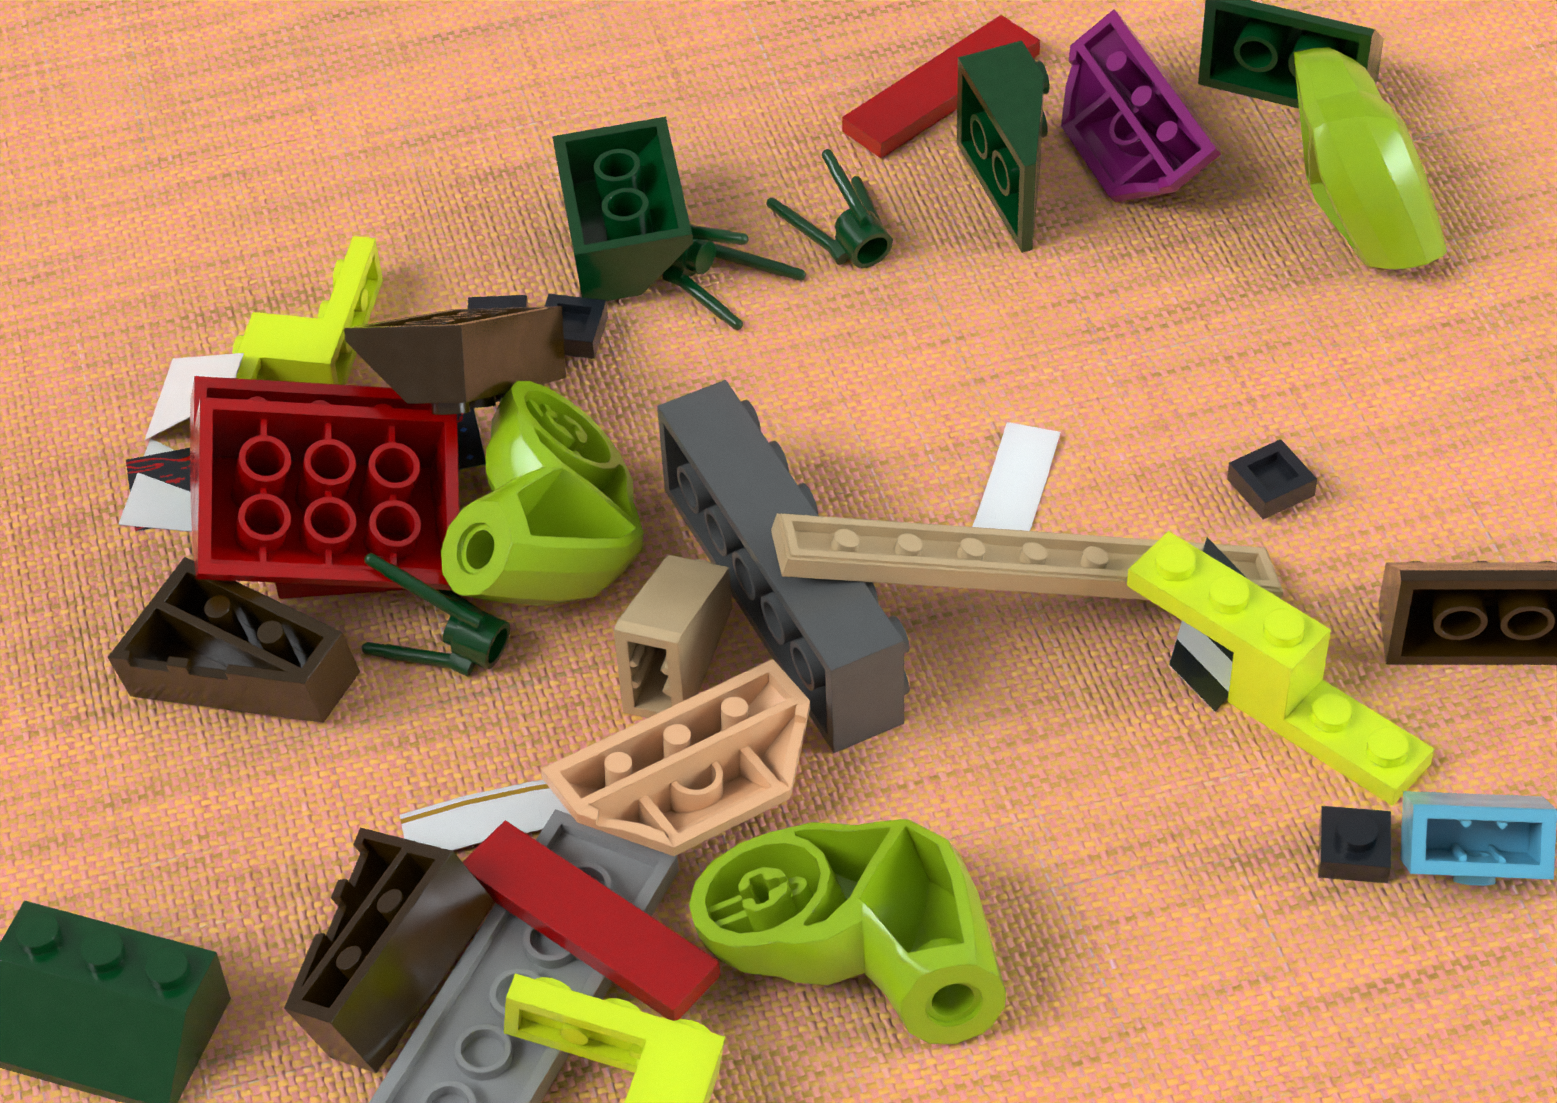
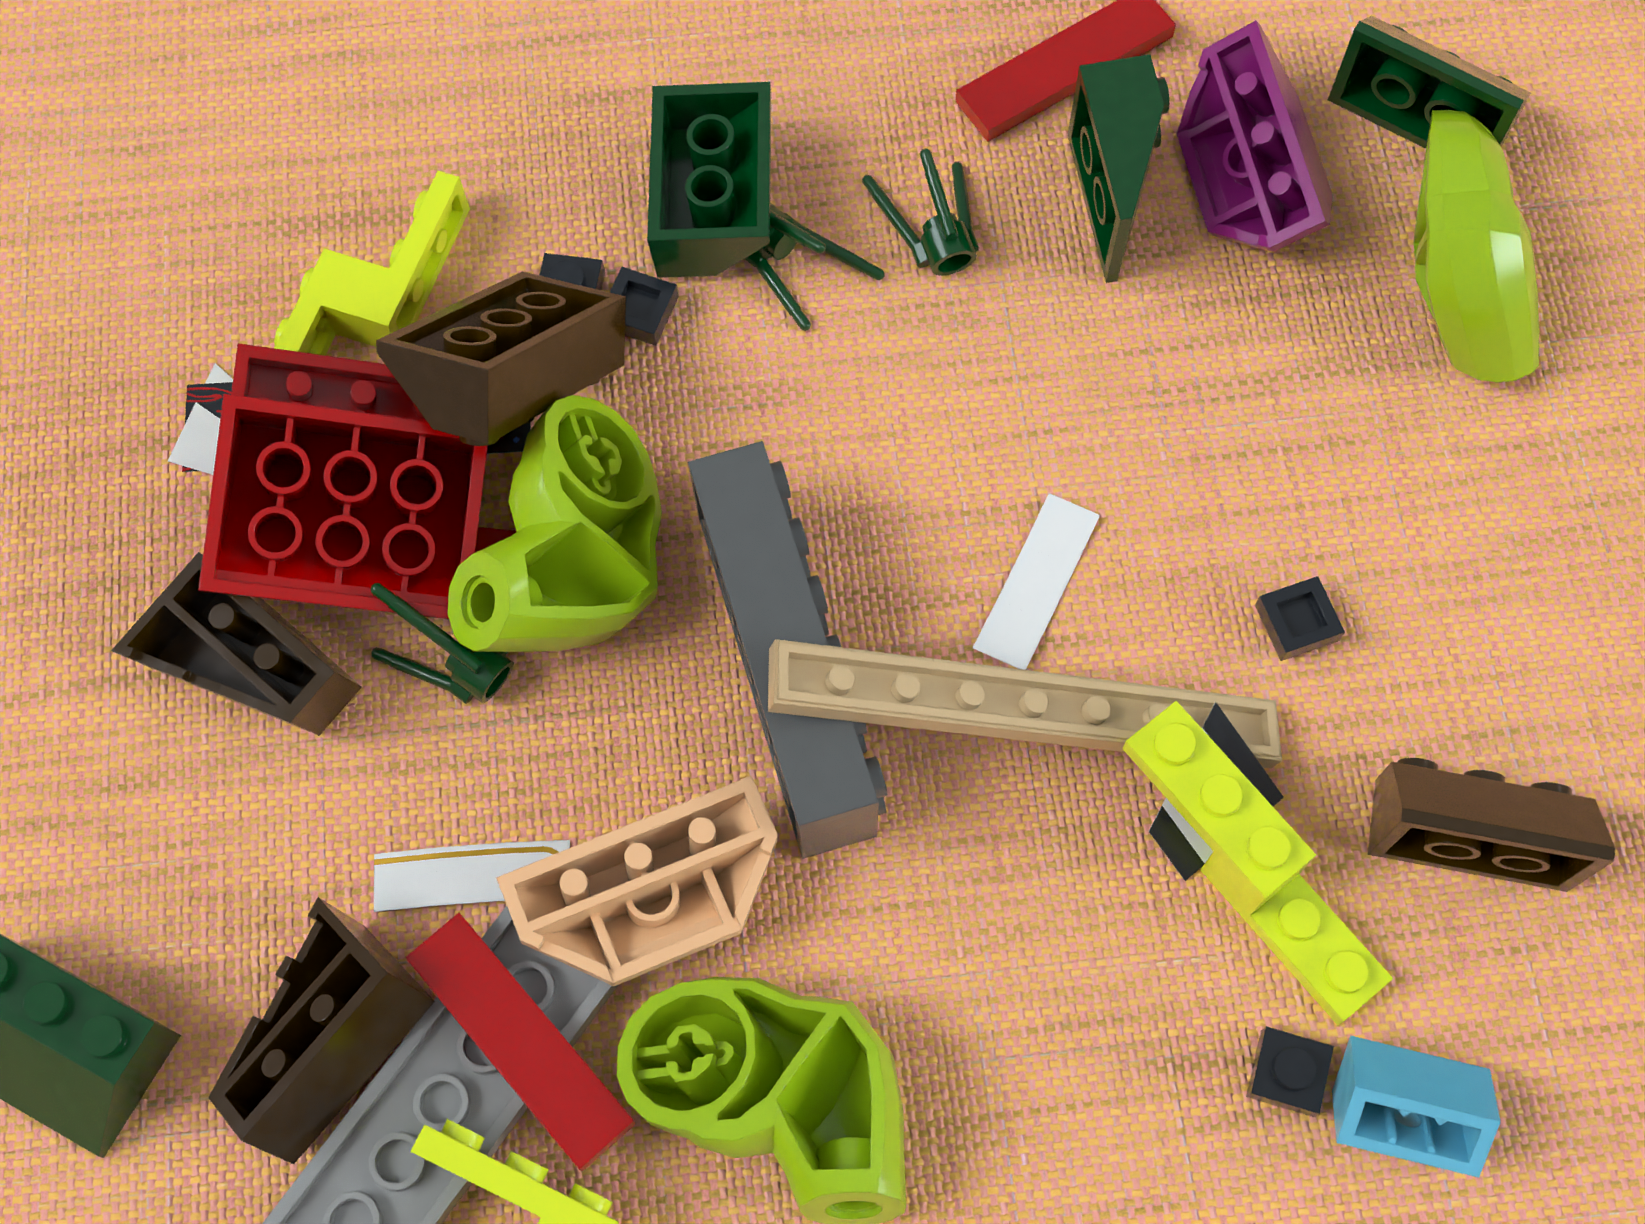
camera: 10 degrees right, 20 degrees up
(175, 396) = (260, 318): white sticker -> none
(671, 634) = (666, 707): tan slope -> none

